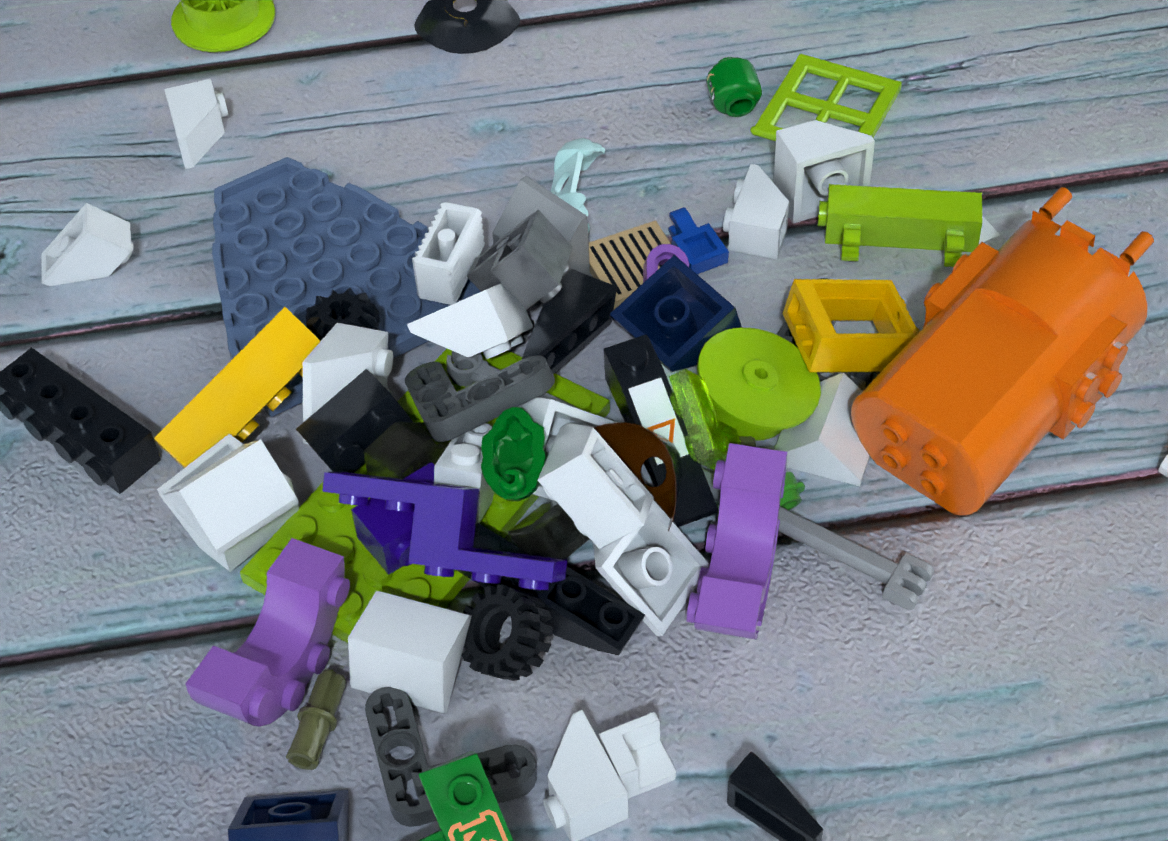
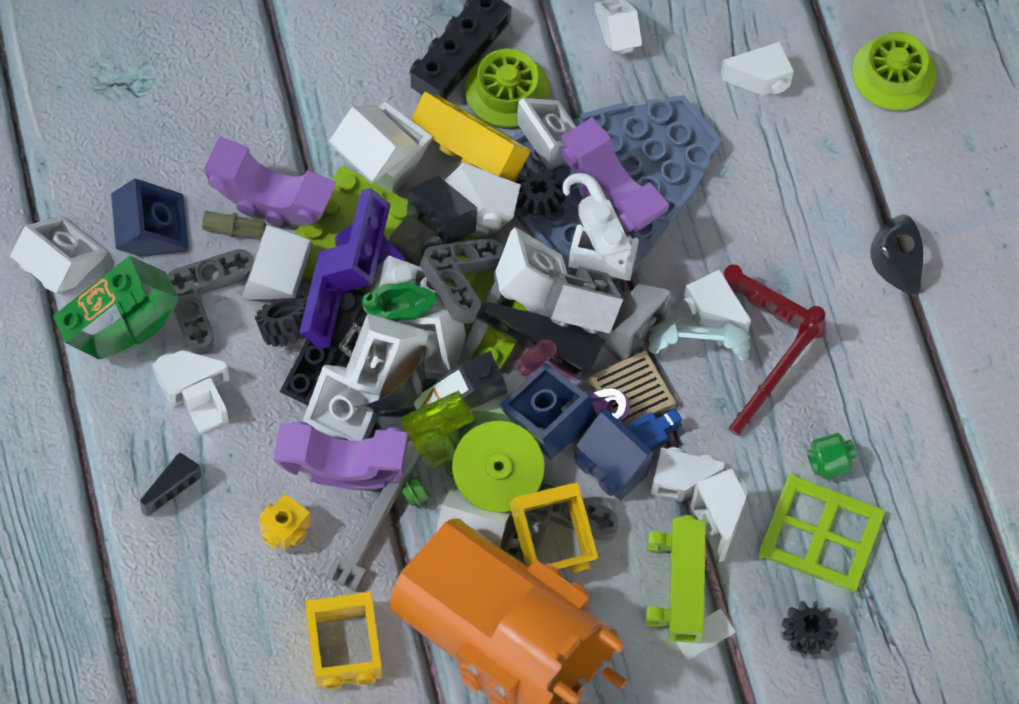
camera: 80 degrees right, 15 degrees up
(152, 370) = (501, 82): none -> lime piece
(240, 317) = (544, 125): none -> white slope
(363, 240) = (591, 152): none -> medium lavender brick
(417, 231) = (601, 223): none -> white plate
(506, 167) = (714, 303): none -> white slope
(546, 103) = (809, 322): none -> dark red piece
(594, 339) = (534, 357): none -> clear pink axle
(742, 260) = (613, 455): none -> dark blue slope
(842, 644) = (284, 523): none -> yellow brick
(958, 115) = (814, 640): none -> black gear
(1021, 614) = (336, 609): none -> yellow window

